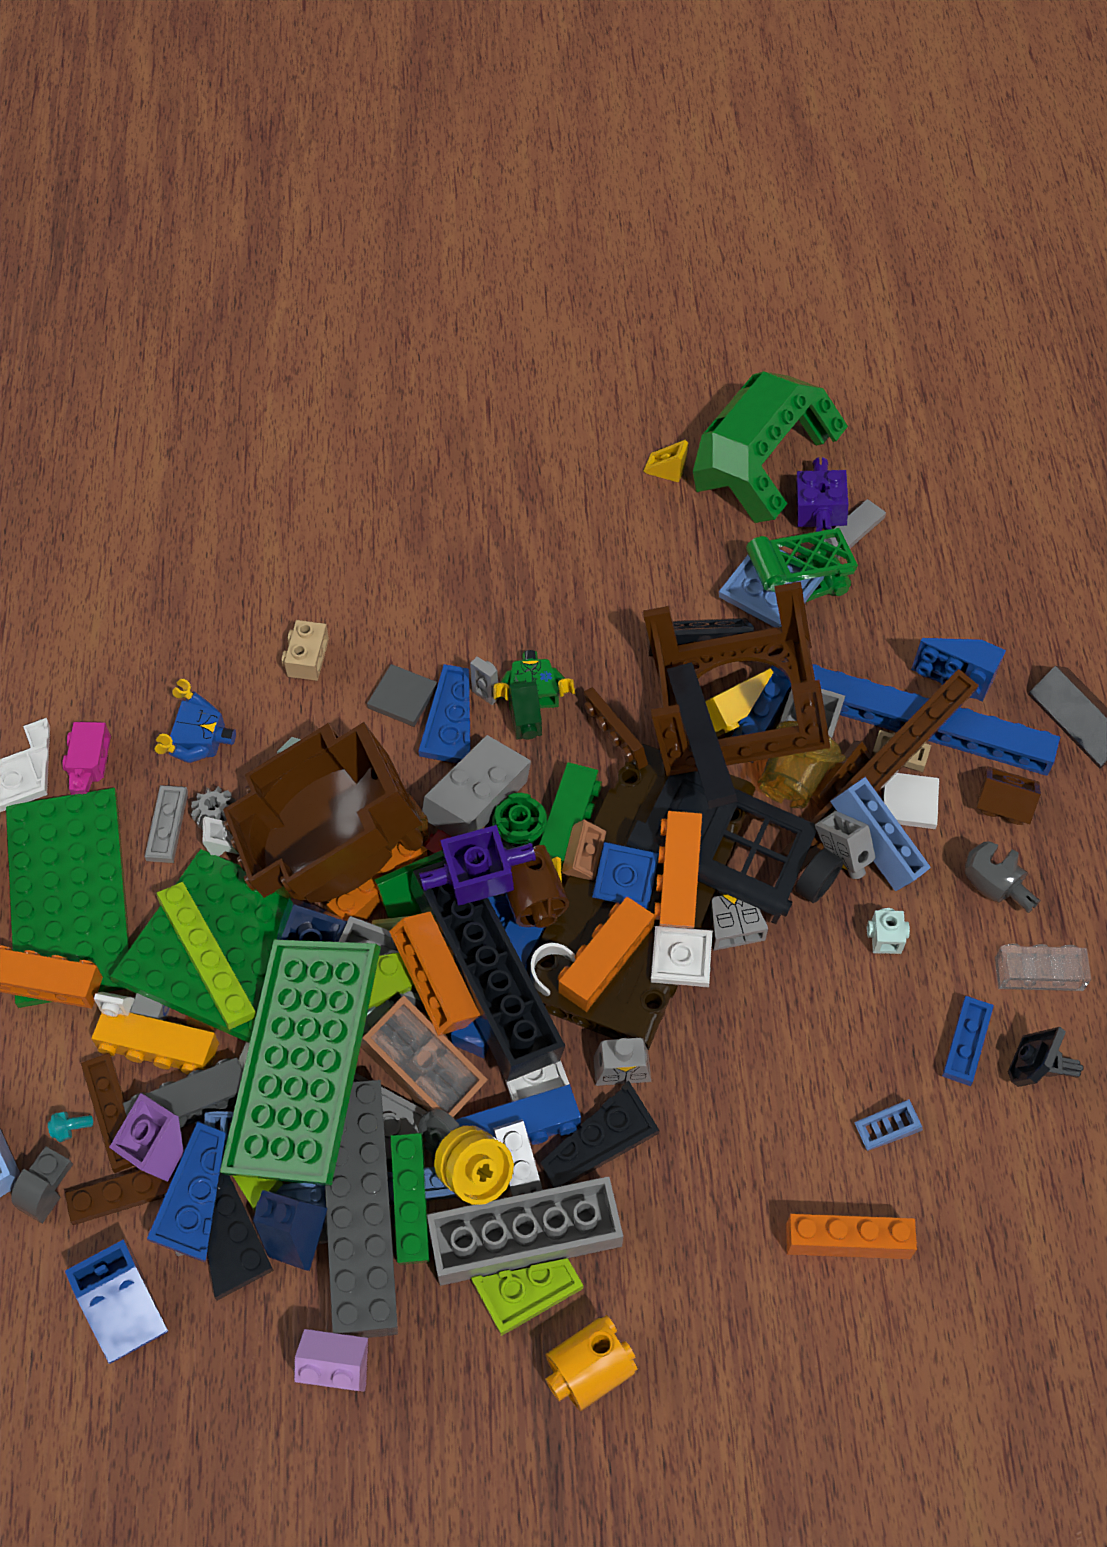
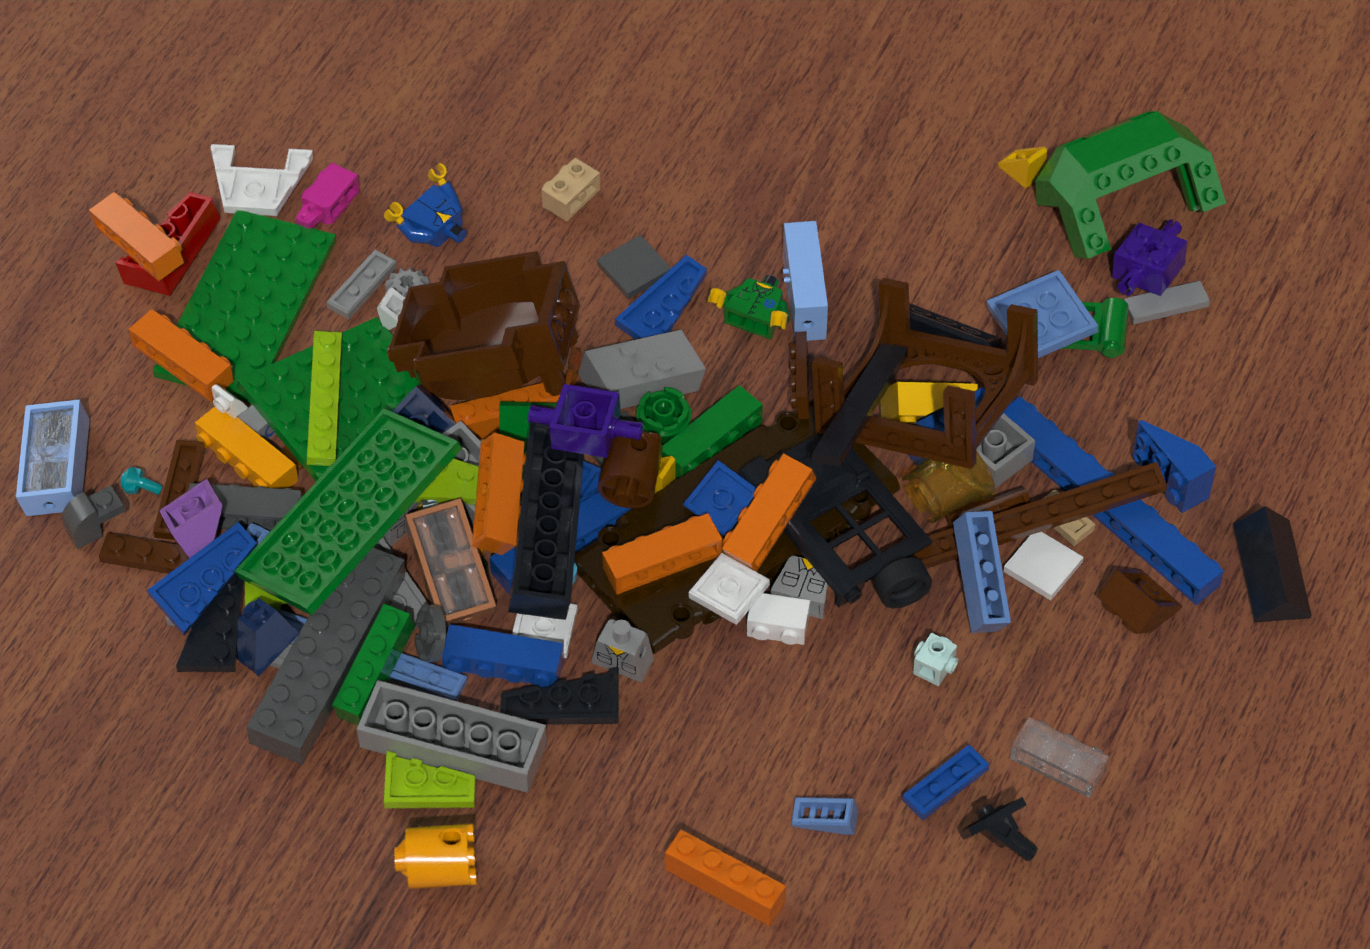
camera: 30 degrees right, 5 degrees down
(116, 1301) = (99, 627): slope -> none
(332, 1360) = (234, 750): lavender slope -> none
(474, 1165) = (442, 676): yellow wheel -> none
(483, 678) = (710, 278): light grey plate -> none
(525, 710) = (731, 325): dark green slope -> none
(525, 1172) = (482, 676): hinge -> none
(542, 951) = (603, 527): white helmet -> none
(562, 640) = (805, 280): none -> light blue brick
(584, 850) = (700, 462): nougat slope -> none
(736, 961) = (779, 619): none -> white brick
(774, 571) = (1047, 294): green piece -> none
(847, 840) = (945, 567): light grey torso -> none
(999, 880) = (1072, 660): dark grey piece -> none

